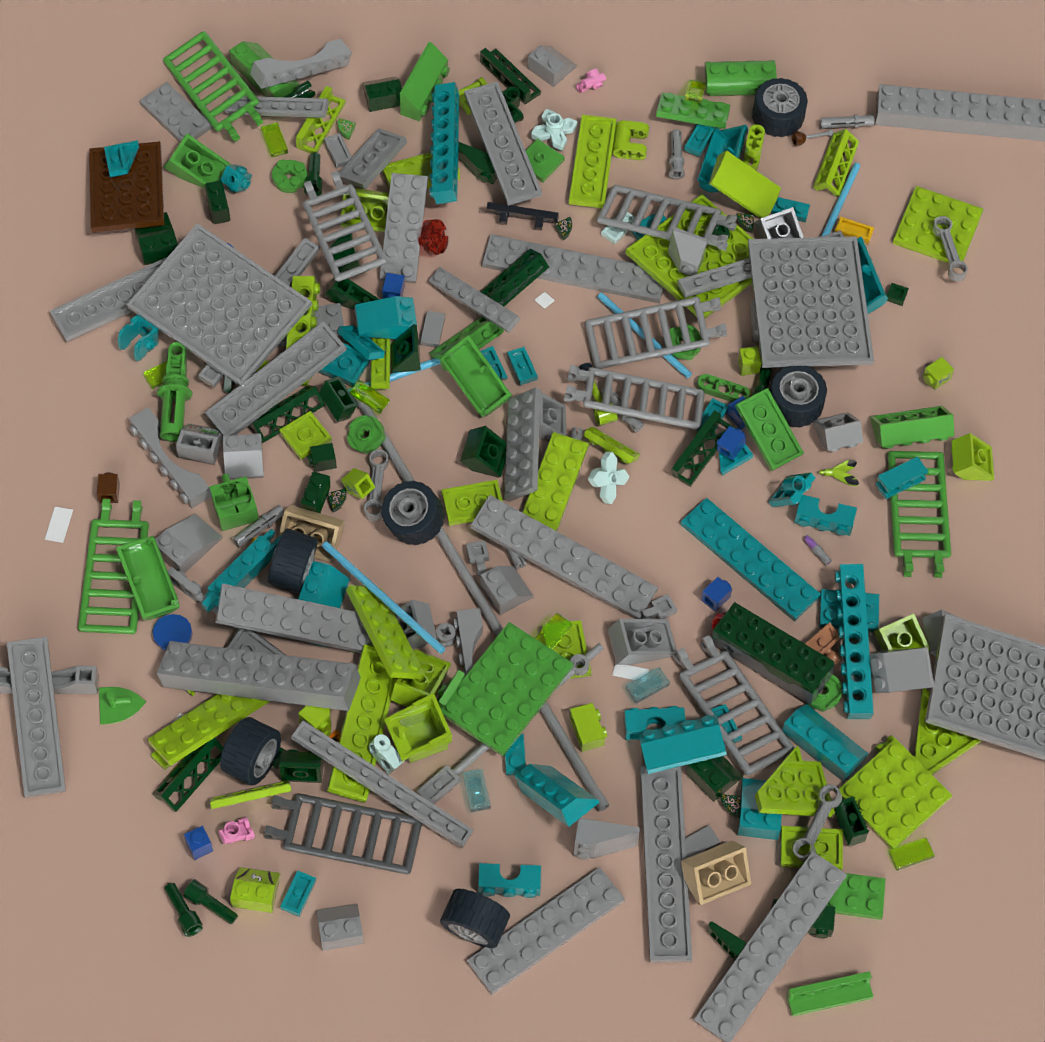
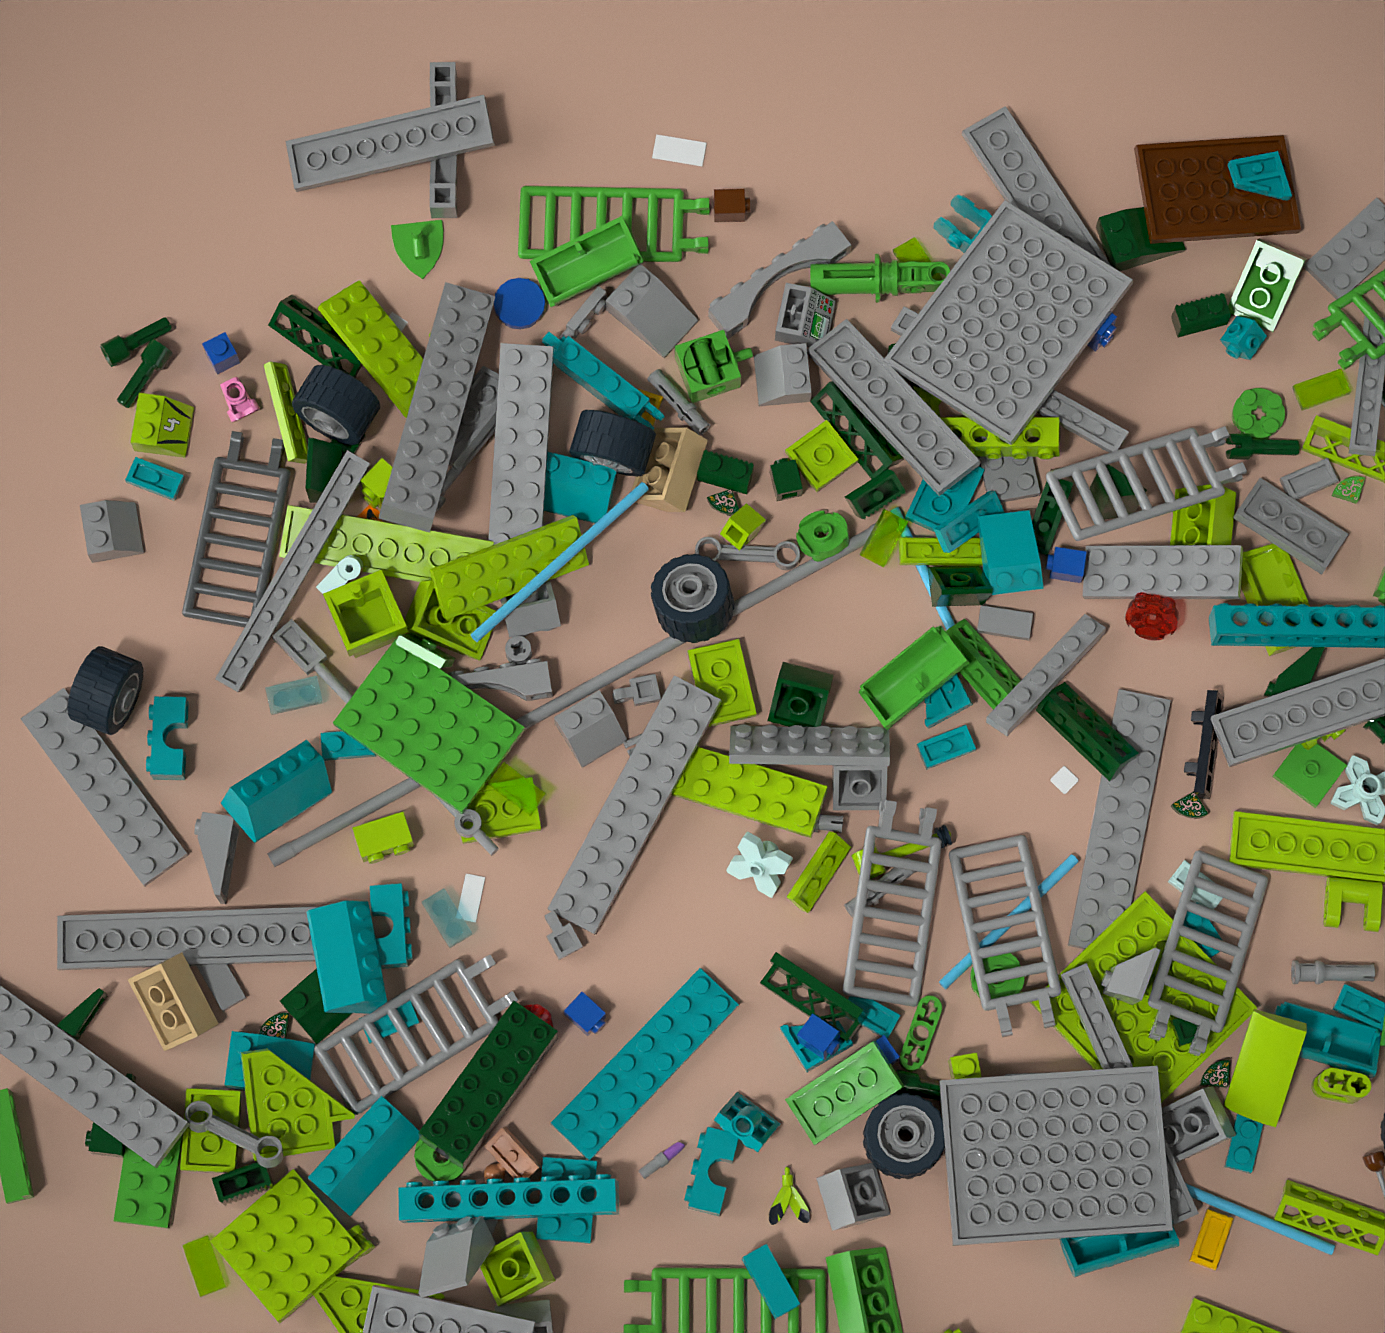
camera: 90 degrees right, 15 degrees up
(641, 640) = (512, 912): light grey slope -> none
(897, 294) = (1098, 1298): dark green tile -> none

